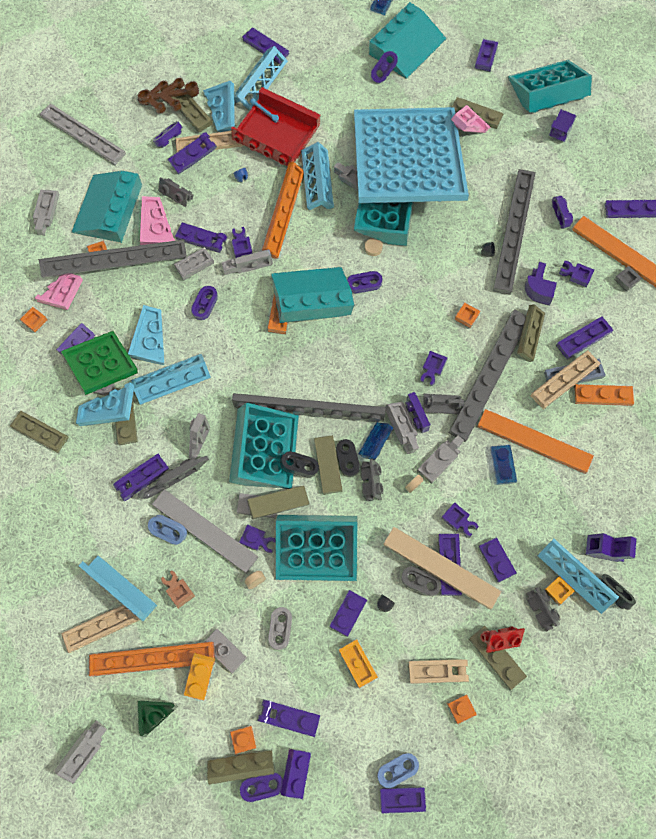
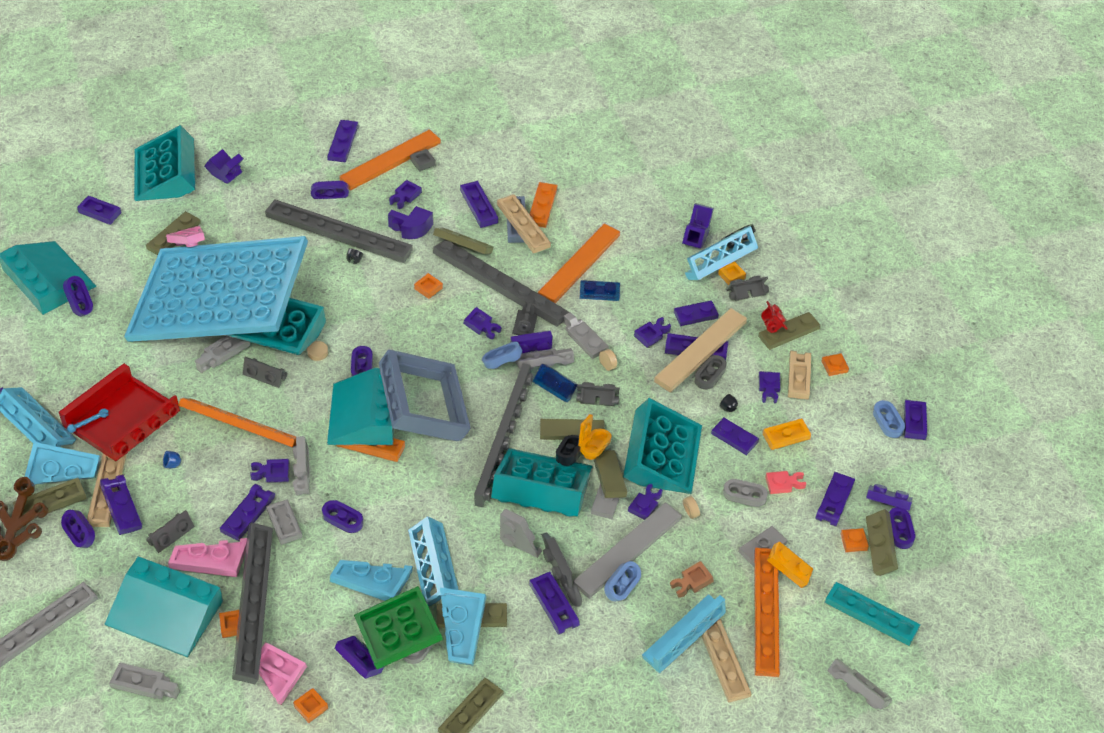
camera: 85 degrees left, 20 degrees down
(152, 714) = (825, 614): dark green slope -> none
(159, 761) = (872, 613): none -> teal plate
(301, 663) = (782, 483): none -> coral plate
(308, 482) = (592, 442): none -> light orange bracket
(321, 173) = (209, 379): medium azure fence -> none
(343, 207) = (263, 372): none -> dark grey hinge
(343, 360) = (391, 367): none -> sand blue window
(347, 457) = (568, 410): black plate -> none
(395, 389) = (501, 355): none -> medium blue plate
(421, 642) = (770, 384): none -> dark purple plate

